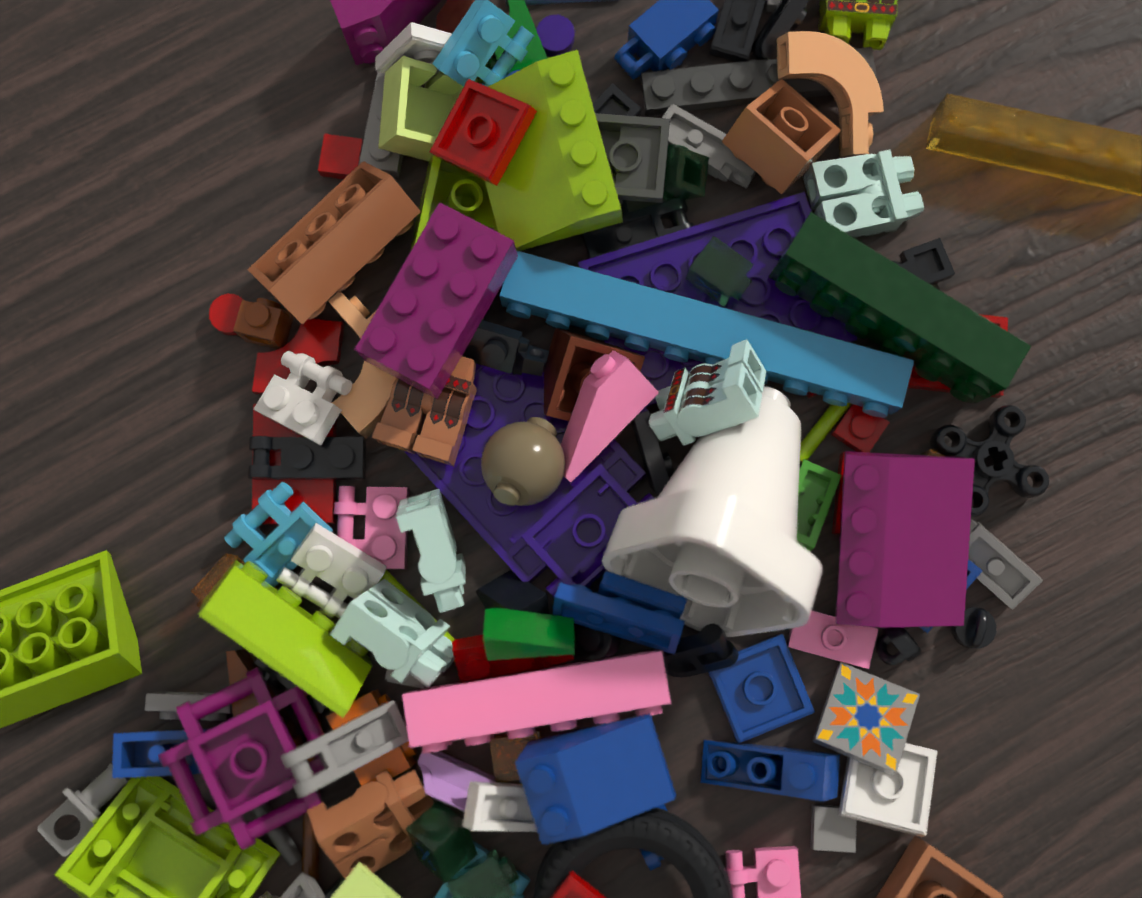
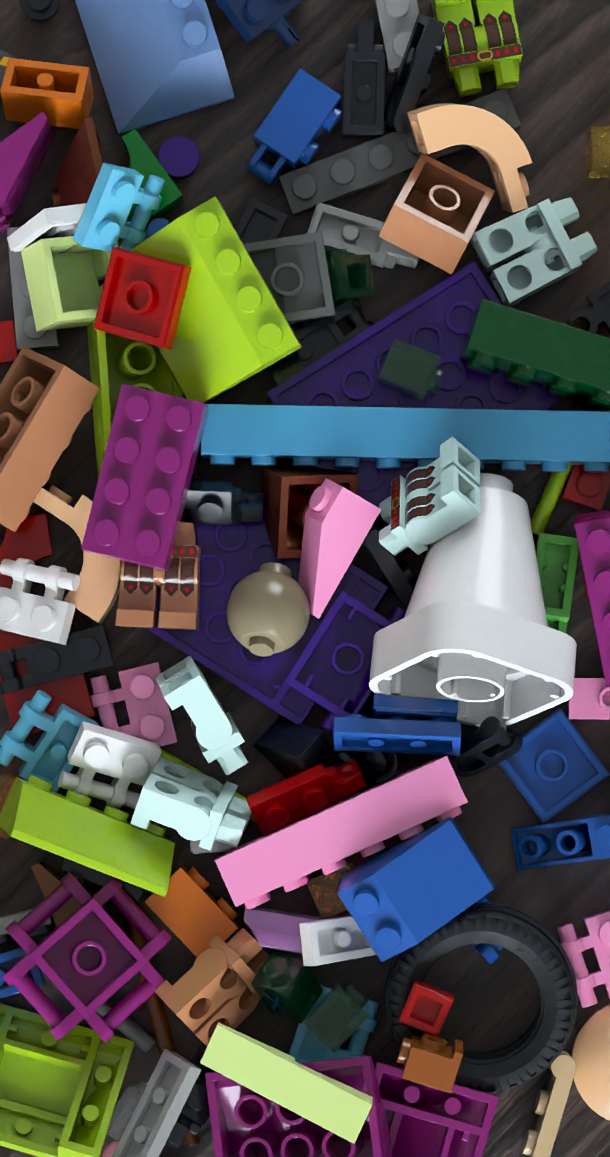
camera: 15 degrees left, 5 degrees up
(347, 747) = (177, 922): light grey plate -> none
(526, 634) = (316, 774): green slope -> none

